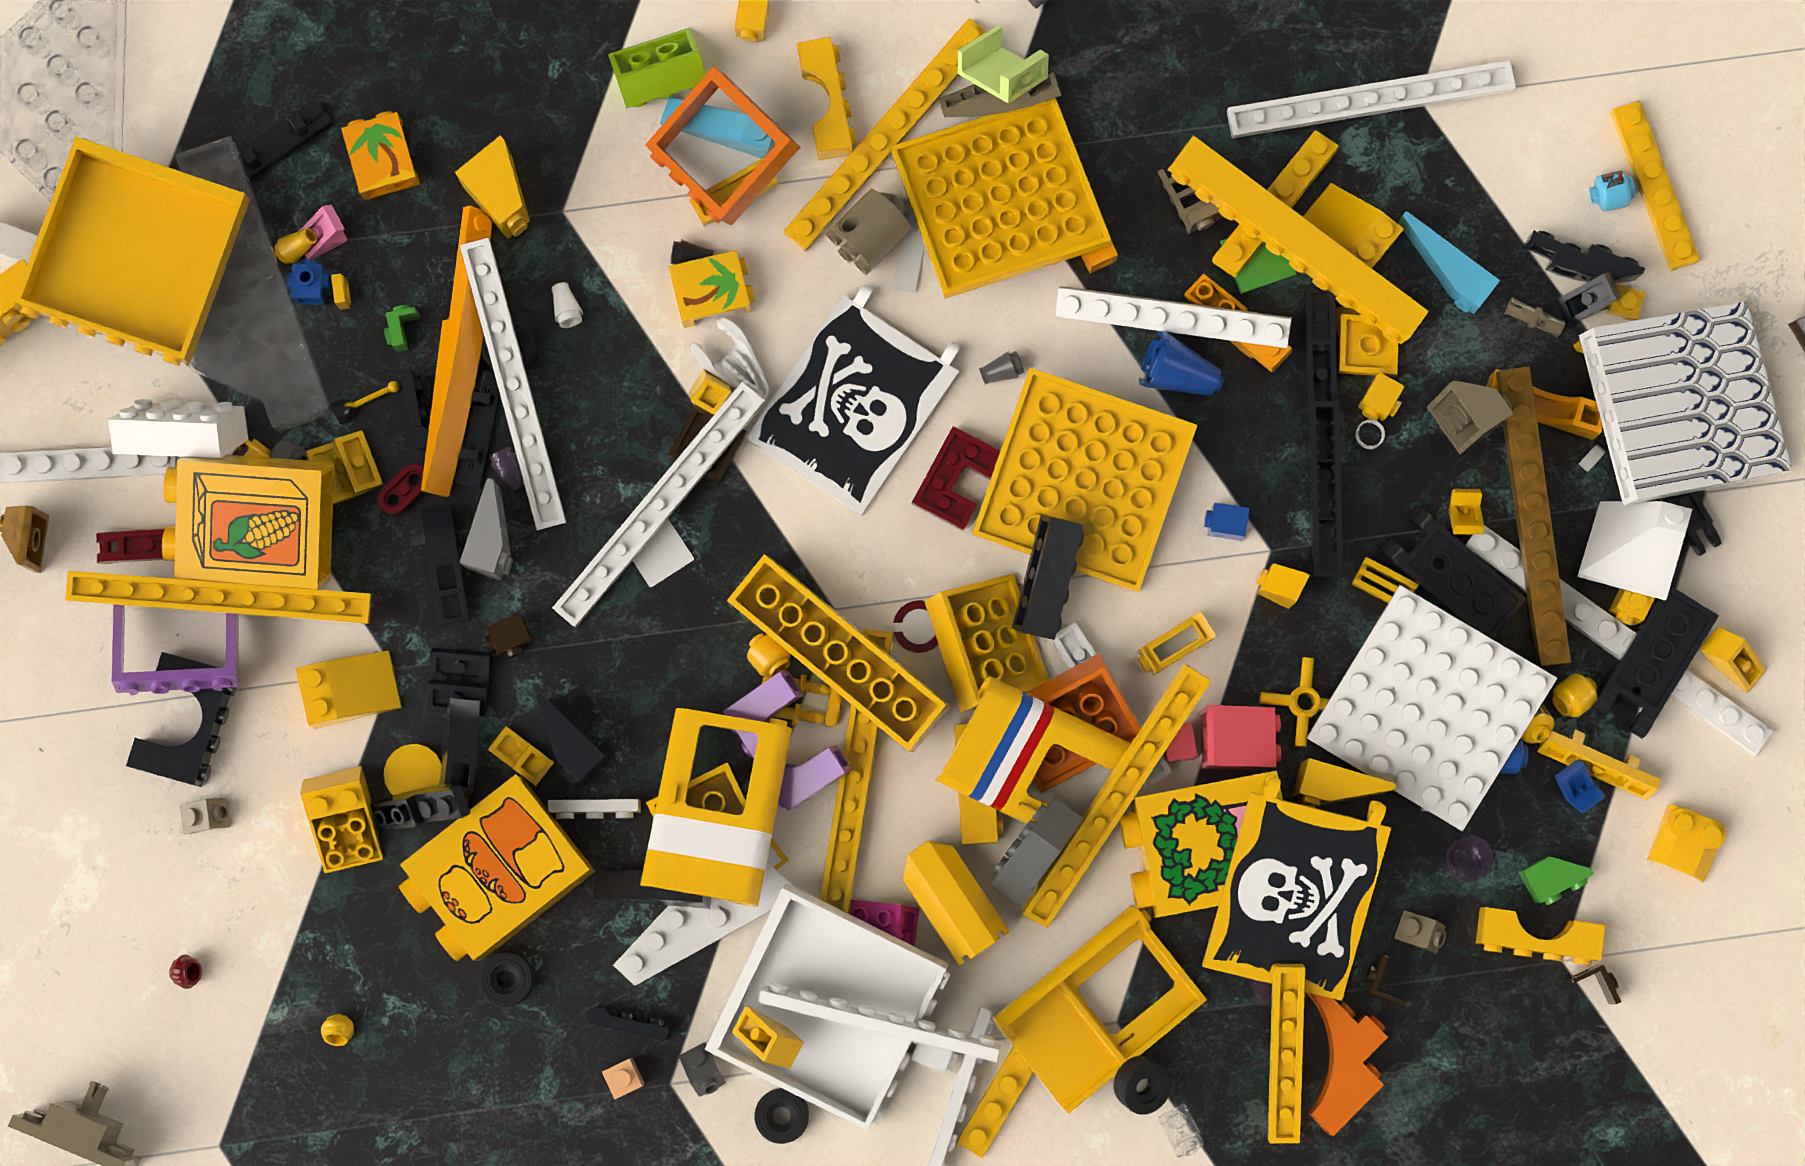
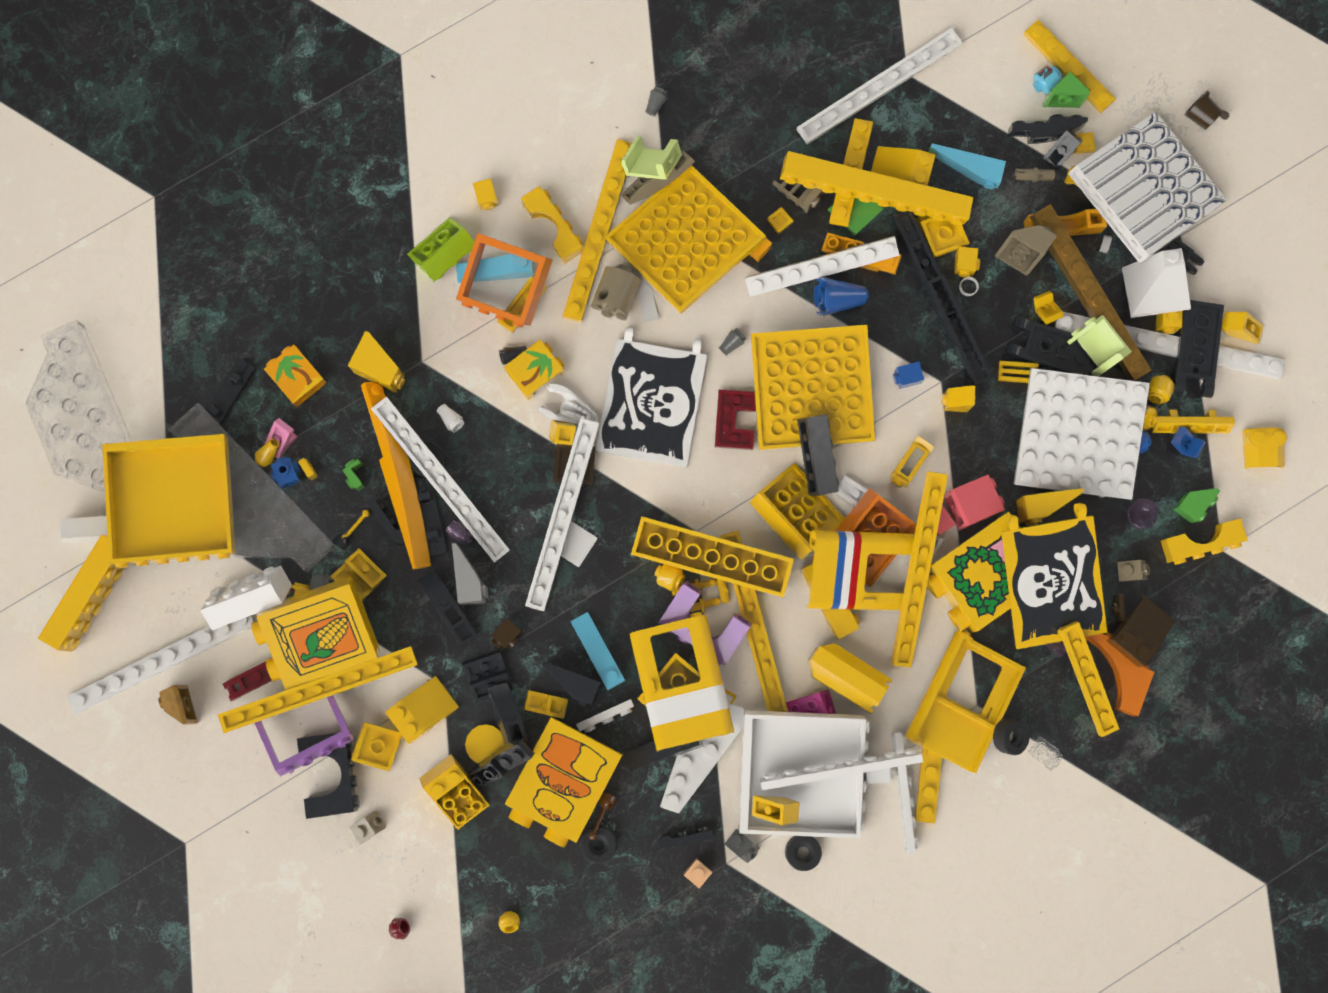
camera: 25 degrees left, 0 degrees up
(264, 710) = (376, 746): none -> yellow plate
(401, 487) = (401, 573): dark red plate -> none
(543, 927) = (607, 802): none -> reddish brown hinge
(624, 715) = (597, 651): none -> medium azure slope
(914, 628) = (749, 521): sticker -> none
(1037, 850) = (886, 623): dark grey brick -> none
(1145, 228) = (780, 220): none -> yellow tile
(1291, 701) = (994, 466): yellow bar -> none
(1390, 1021) = (1142, 632): none -> dark brown slope
(1516, 594) = (1101, 344): none -> yellowish green panel
(1606, 981) = (1254, 550): dark brown bracket -> none
(1630, 222) = (1067, 93): none -> bright green slope

